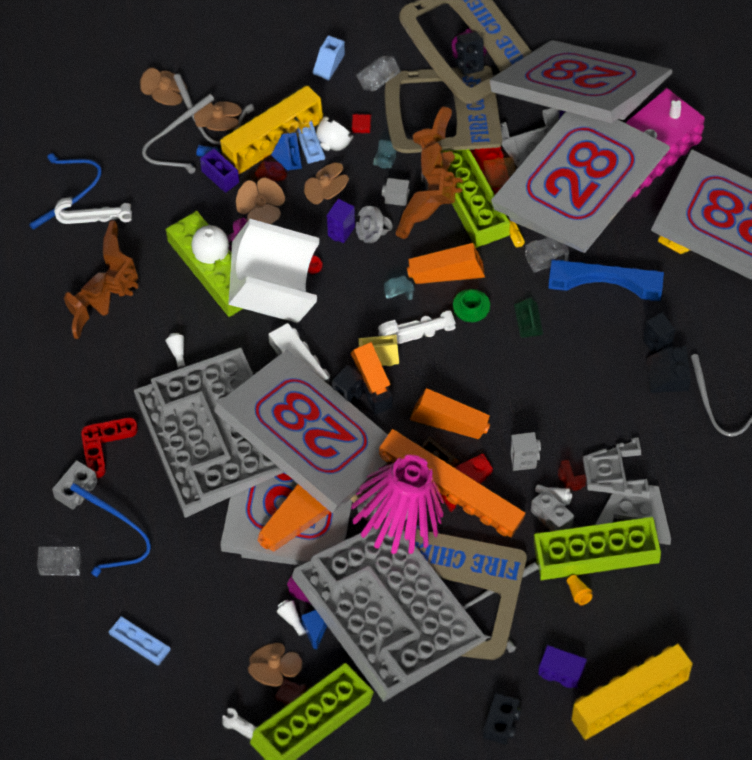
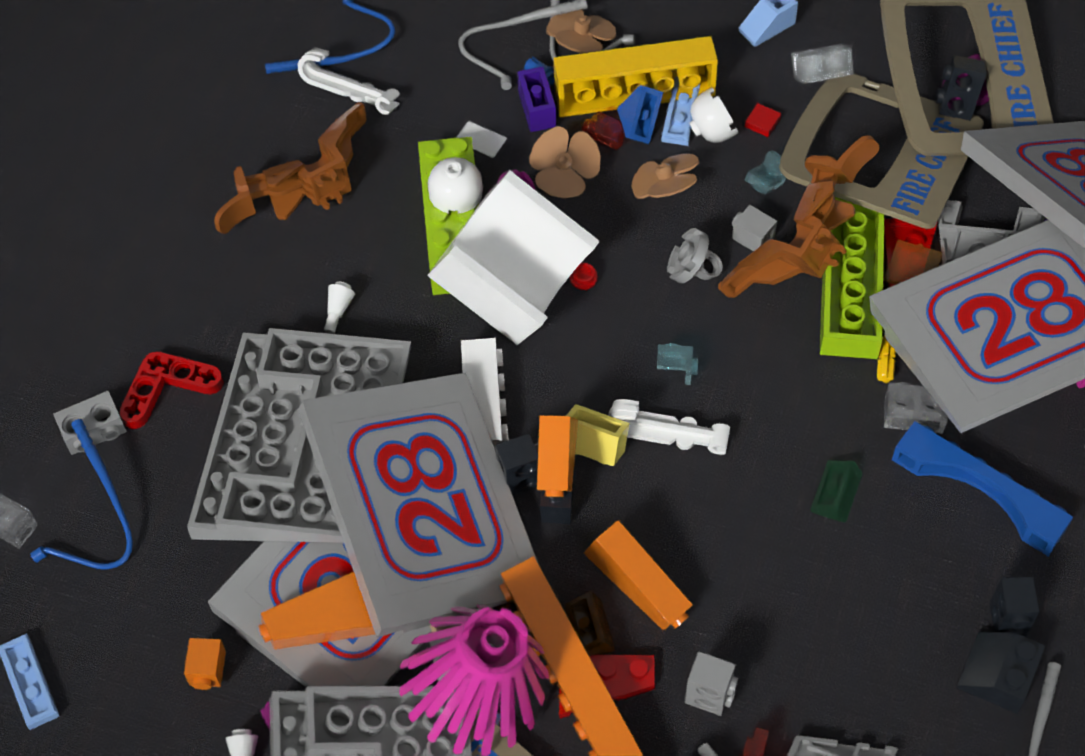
camera: 30 degrees right, 0 degrees up
(203, 209) = (483, 139): none -> white sticker
(238, 578) = (204, 663): none -> orange brick
(340, 221) = (651, 234): dark purple brick -> none
(447, 265) = (763, 360): orange slope -> none
(471, 305) = (768, 422): green piece -> none

